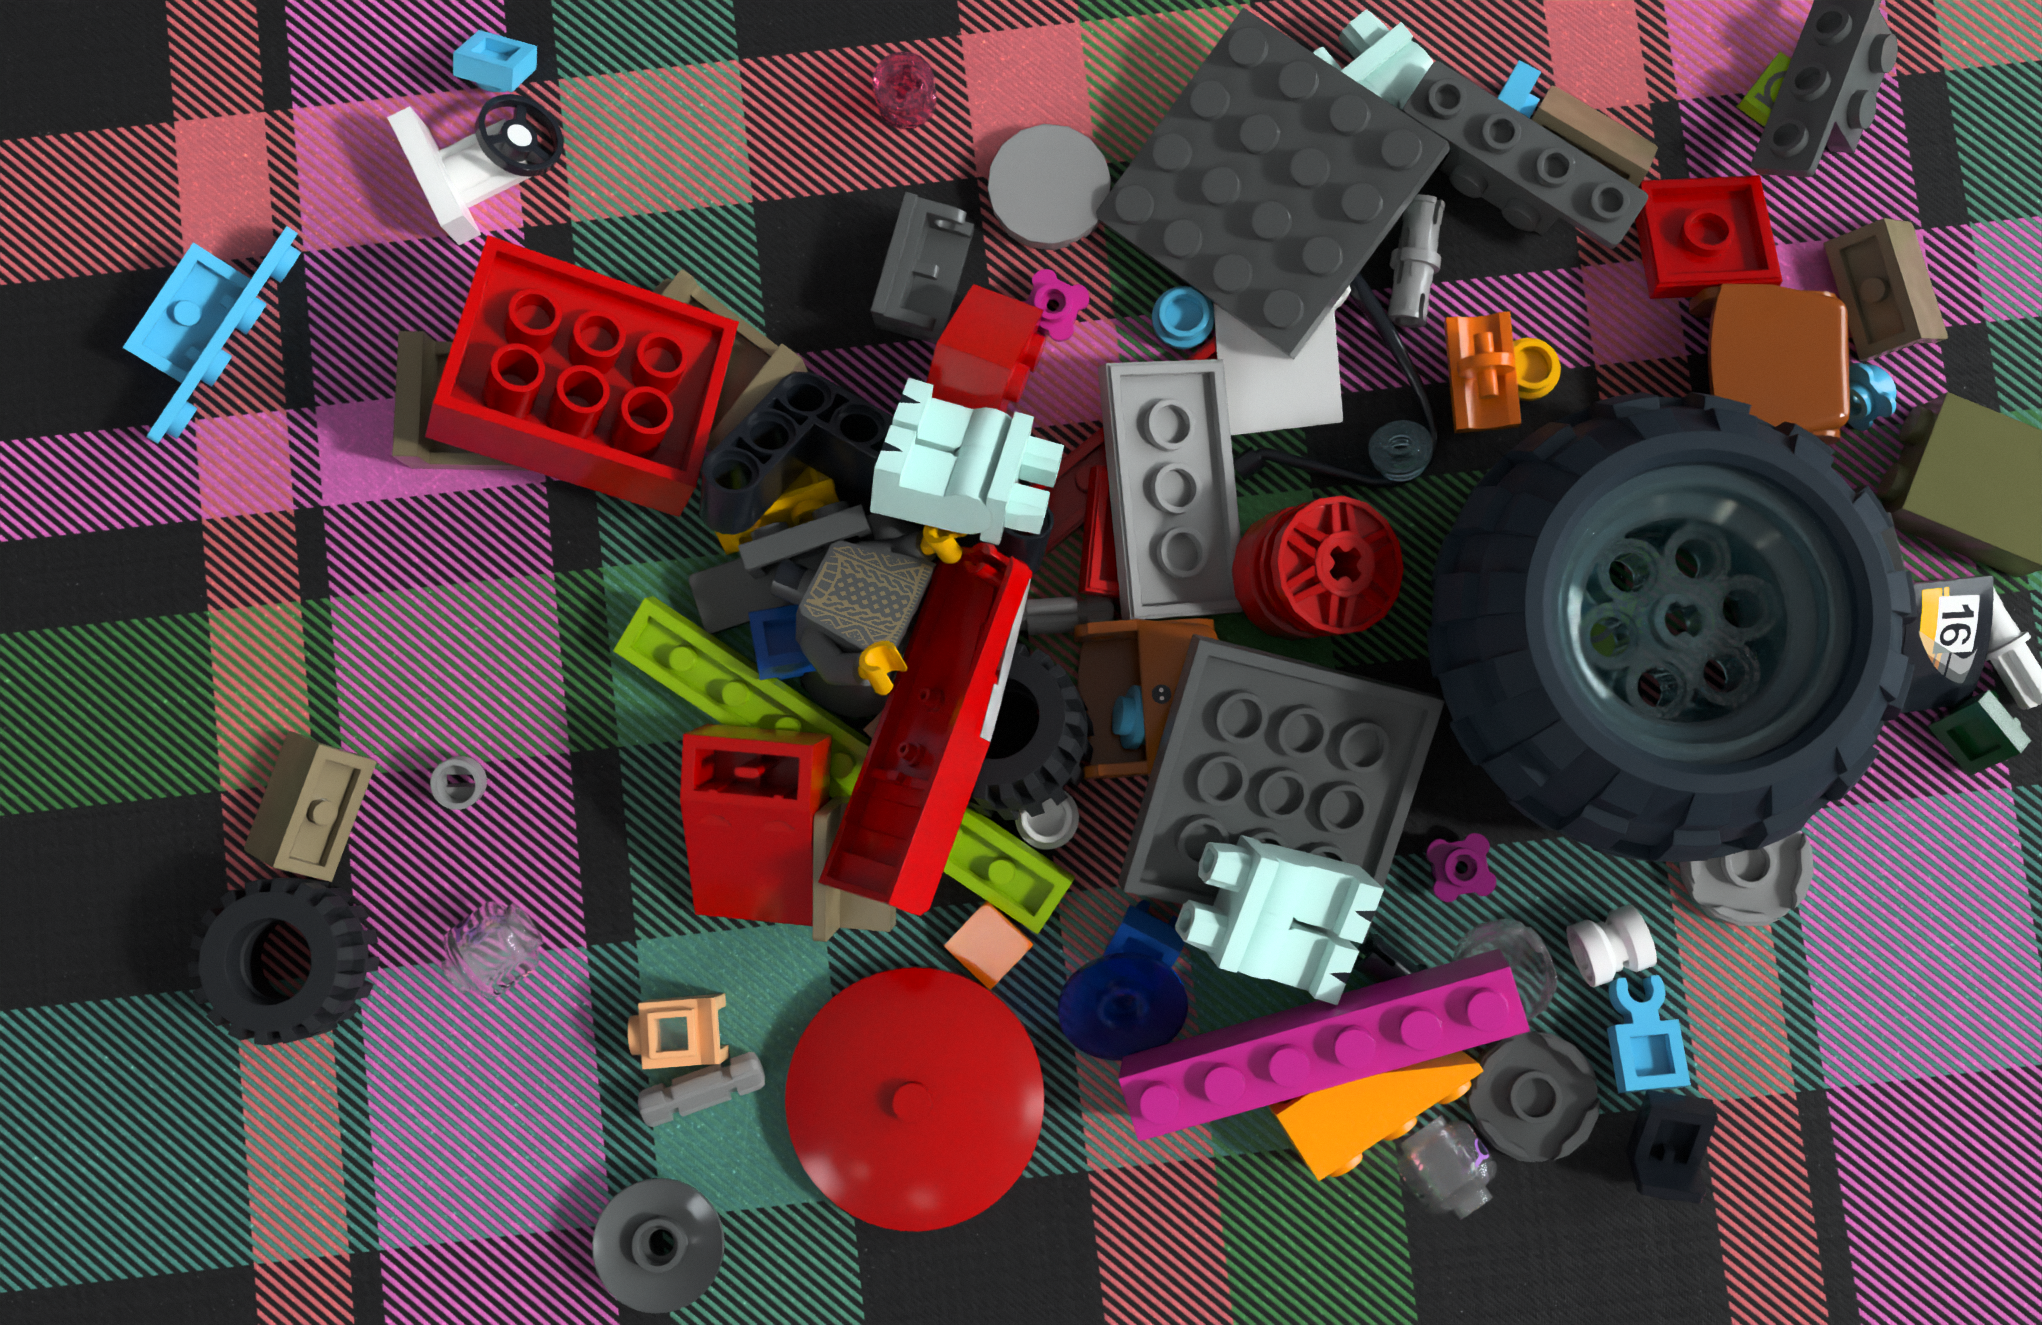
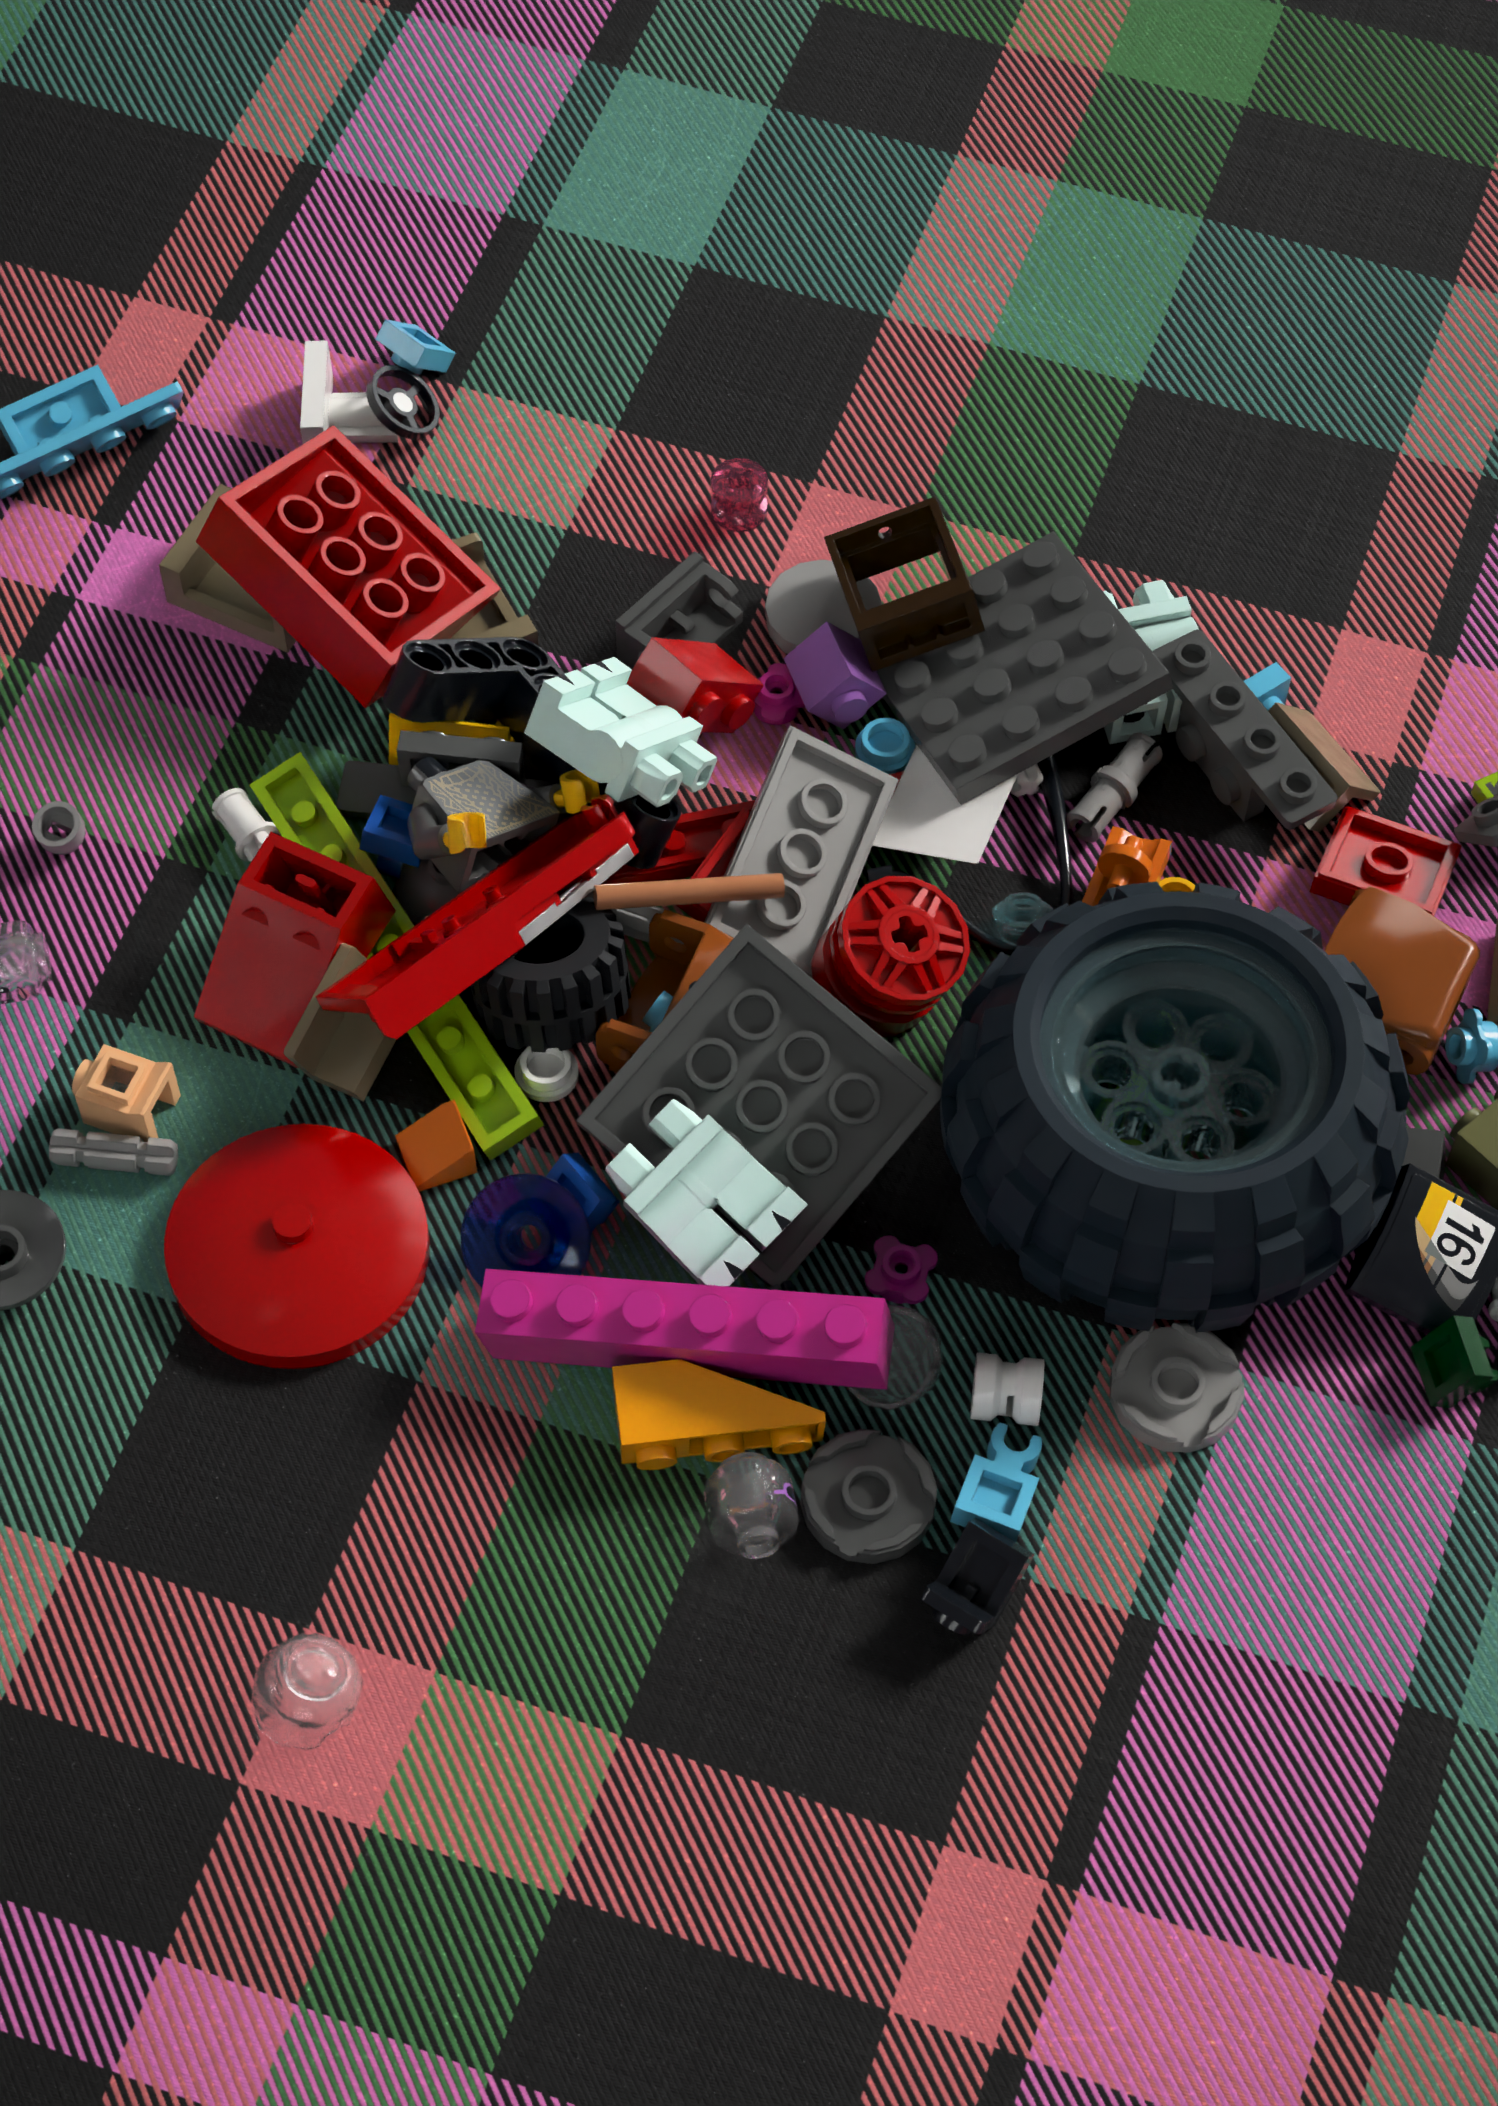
camera: 20 degrees right, 25 degrees down
(647, 699) = (242, 822): none -> white axle
(1103, 597) = (688, 891): none -> nougat bar
(1107, 268) = (834, 676): none -> medium lavender brick
(1175, 181) = (916, 620): none -> dark brown window

